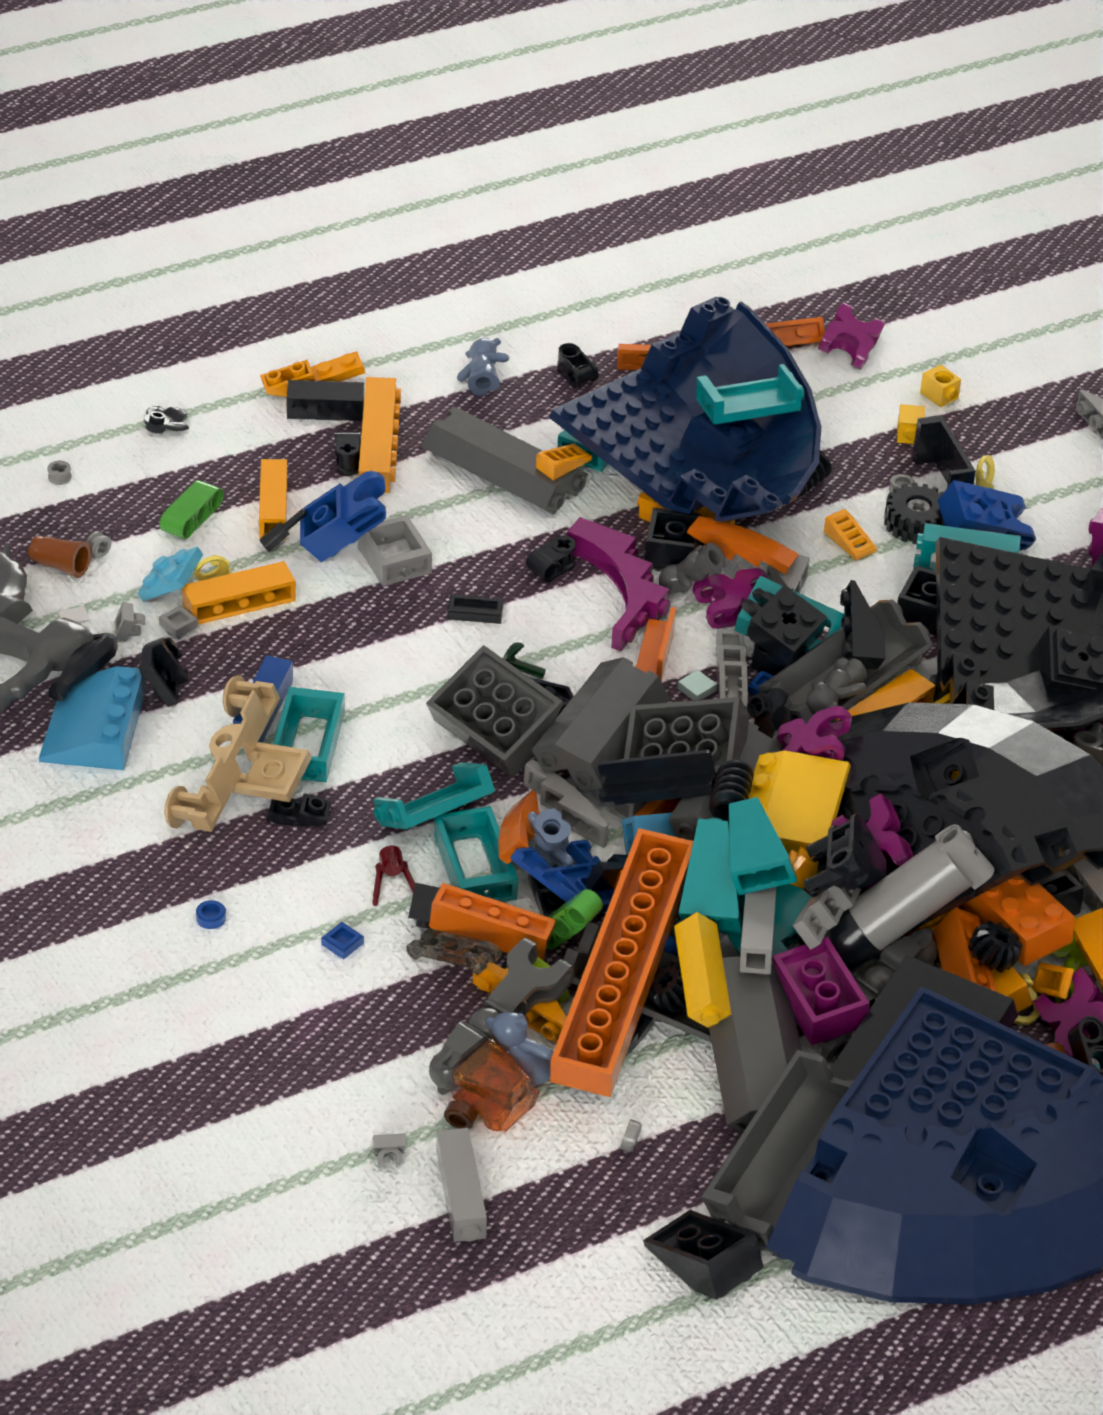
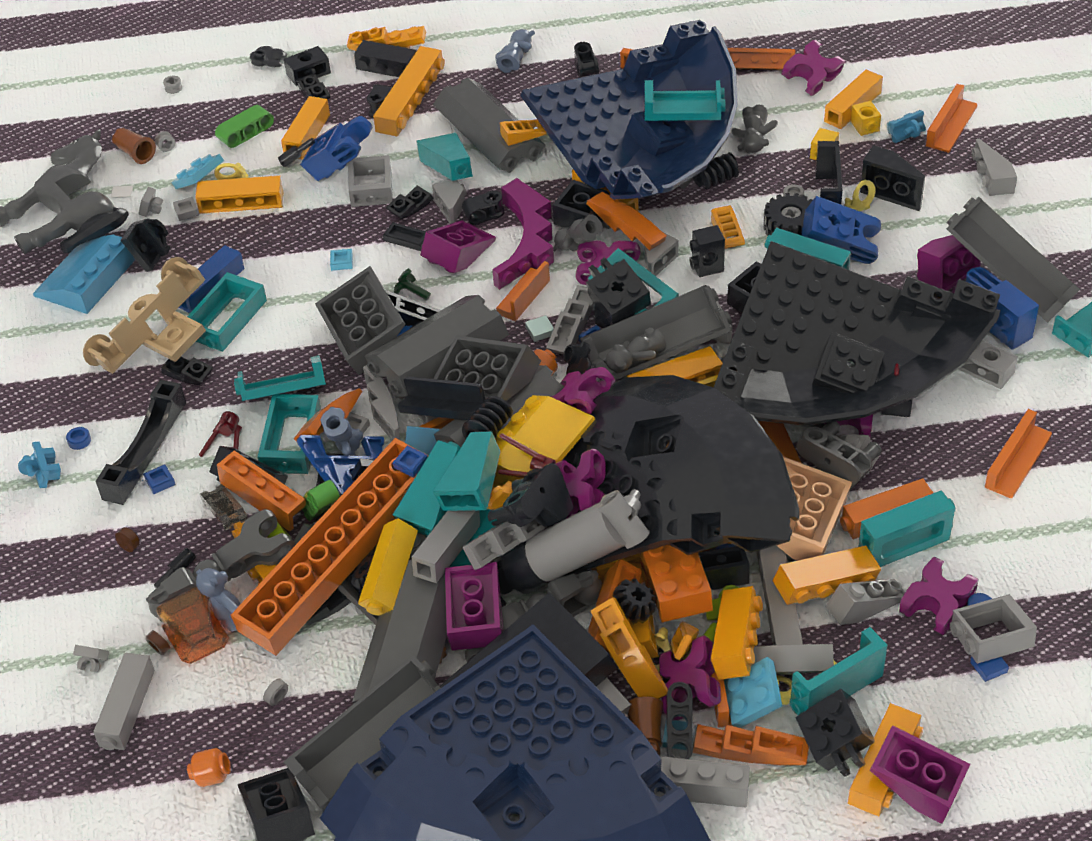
camera: 25 degrees right, 5 degrees up
(185, 951) = (40, 465): none -> dark azure hips
(227, 423) = (307, 63): none -> black brick
(248, 451) = (312, 87): none -> black slope
(304, 901) = (121, 477): none -> black arch
(351, 1013) = (127, 539): none -> reddish brown tile
(410, 649) = (341, 259): none -> medium azure tile
(427, 1030) = (180, 561): none -> black axle
(457, 568) = (410, 204): none -> black slope
(479, 505) = (445, 156): none -> teal slope
(504, 555) = (449, 198): none -> light grey slope
(545, 610) = (455, 245): none -> magenta slope
(603, 1229) = (208, 767): none -> orange head
(673, 849) = (410, 461): none -> blue tile
(821, 818) = (537, 462): none -> dark red plant
(831, 430) = (754, 121): none -> dark grey piece
(850, 561) = (707, 251): none -> black brick
(863, 632) = (675, 314): black slope -> none
(916, 360) = (862, 89): none -> light orange brick
(991, 388) = (908, 126): none -> dark azure hips
(1015, 449) = (893, 178): none -> black slope
(1032, 1017) = (627, 651): none -> light orange slope
(1034, 376) = (950, 121): none -> orange panel

